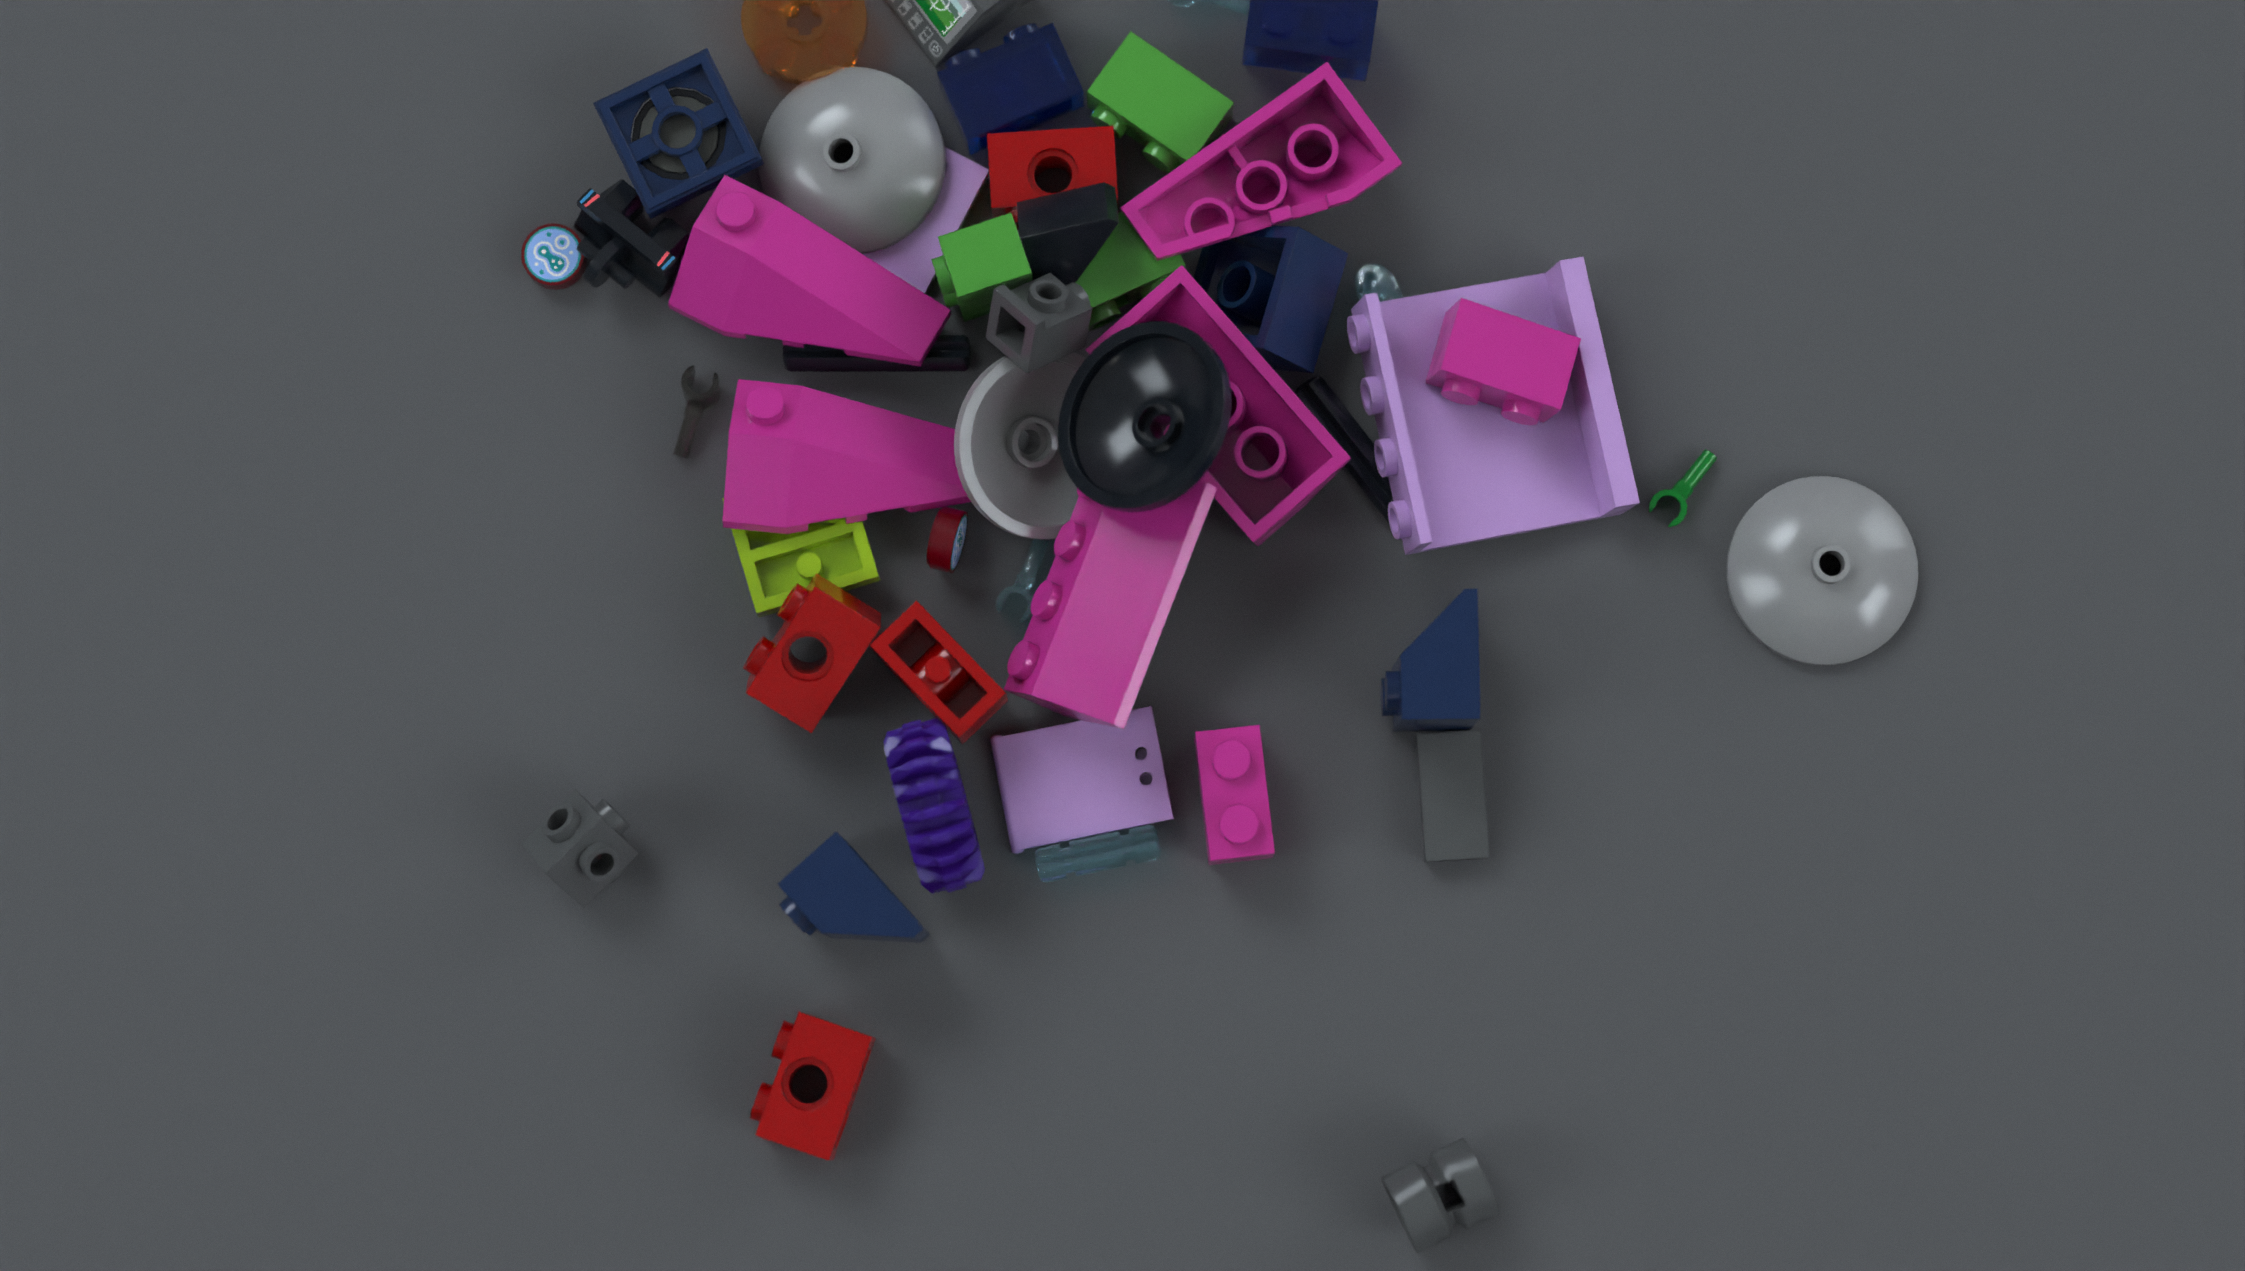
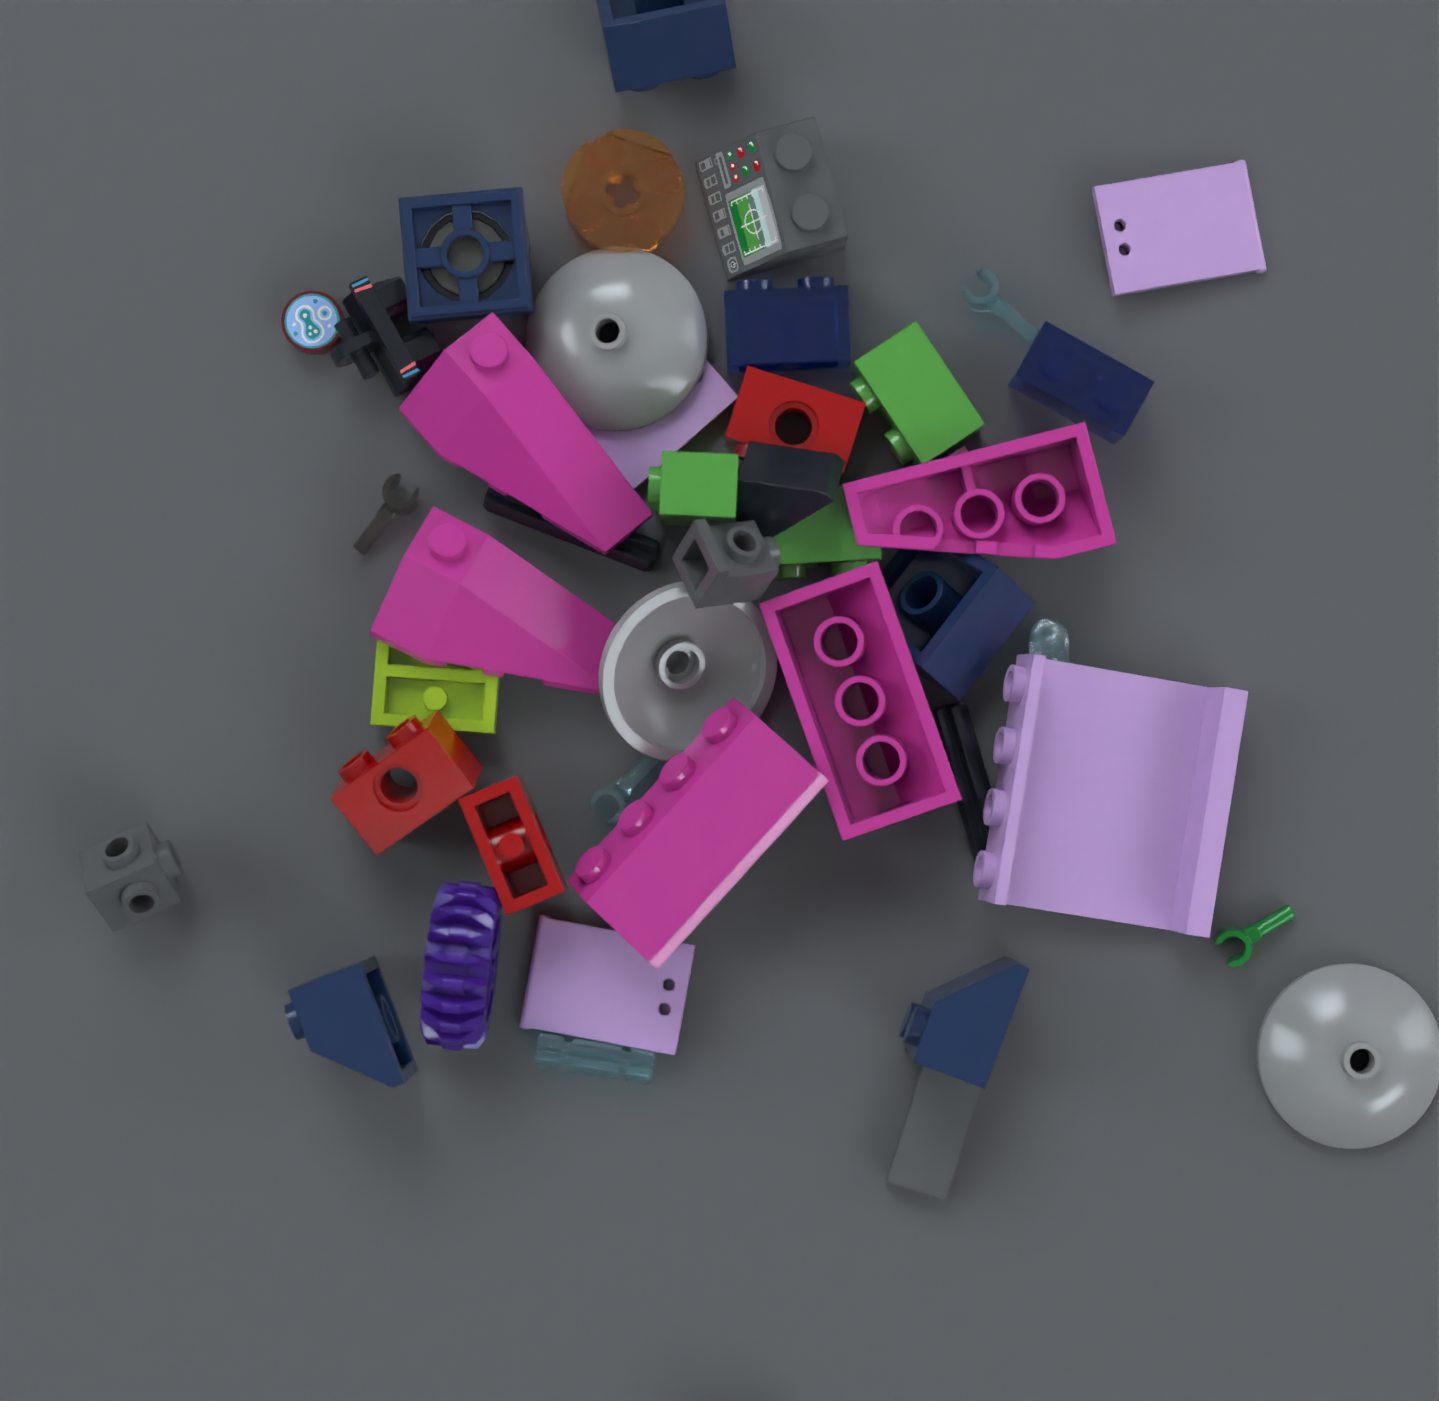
camera: 20 degrees right, 5 degrees up
(818, 1125) = (238, 1202): red brick -> none
(947, 539) = (568, 722): dark red tile -> none
(1124, 402) = (764, 678): black dish -> none
(1234, 794) = (737, 1058): dark pink piece -> none
(1502, 362) = (1135, 760): dark pink piece -> none

